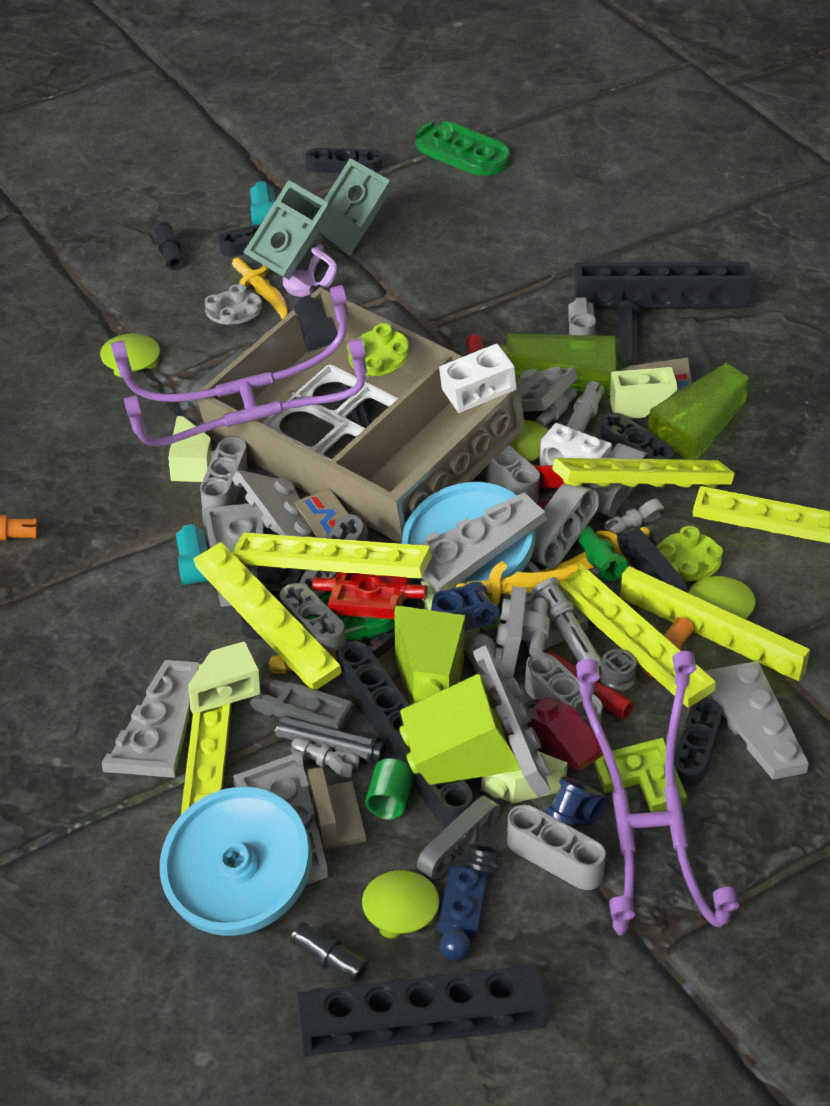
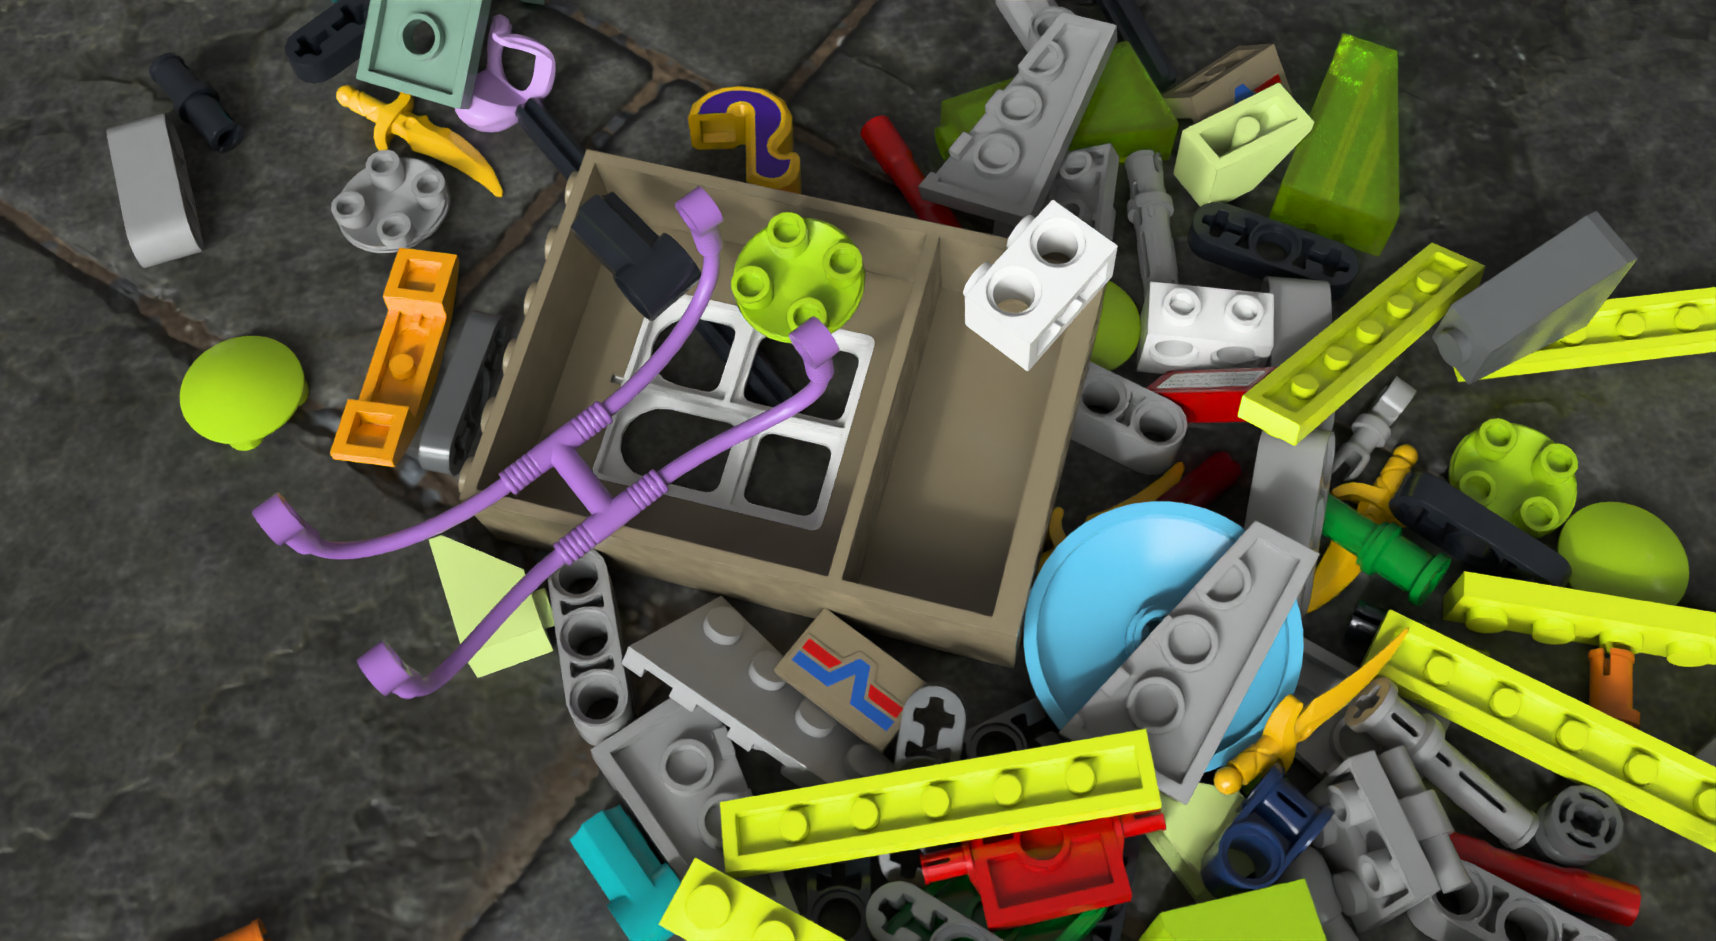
camera: 25 degrees left, 20 degrees up
(133, 271) = (154, 190): none -> light grey beam
(223, 343) = (405, 360): none -> light orange slope
(411, 317) = (752, 119): none -> yellow animal
(544, 347) = (1022, 138): none -> light grey wing
(731, 480) = (1534, 299): none -> dark grey slope

